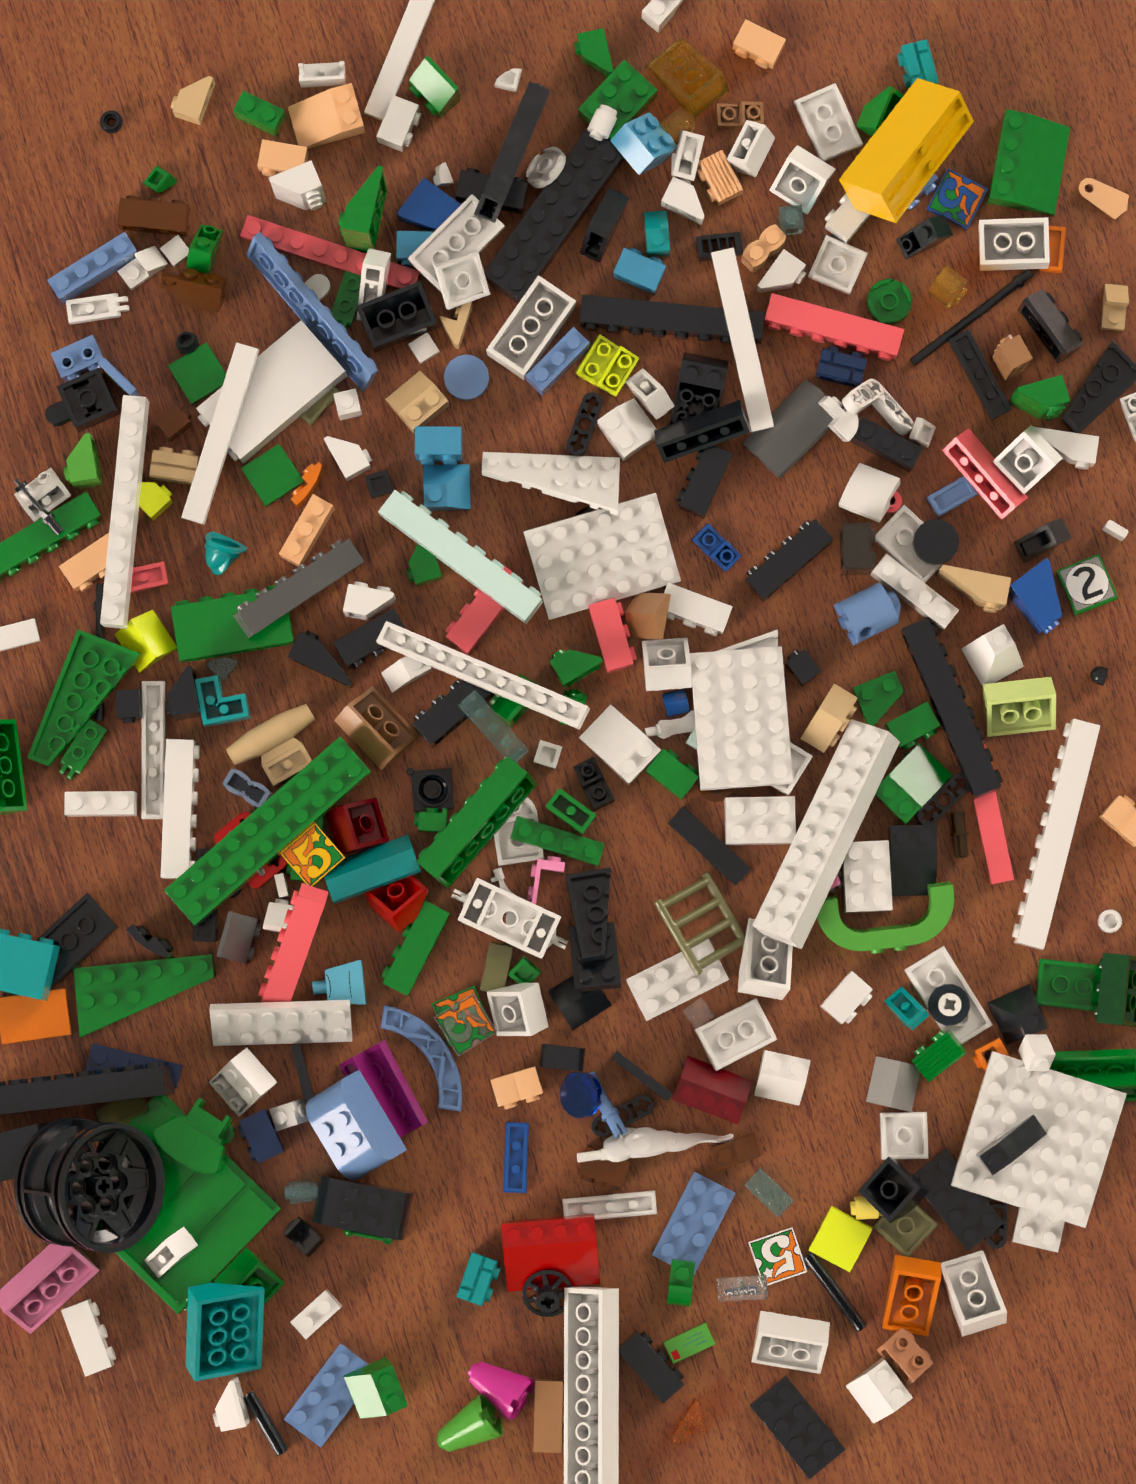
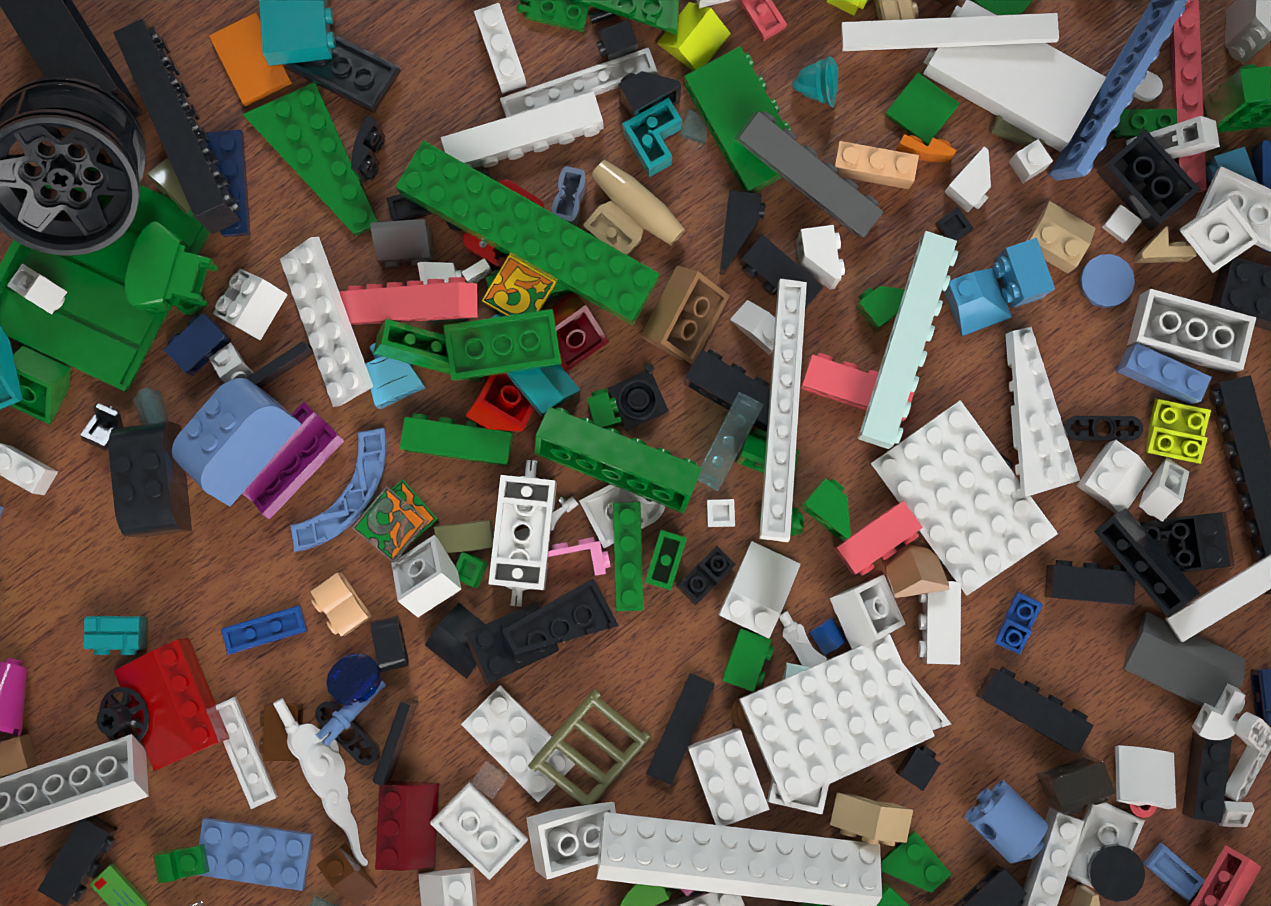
camera: 75 degrees right, 0 degrees up
(337, 942) = (413, 346): none -> green brick
(353, 882) = (502, 345): none -> green plate

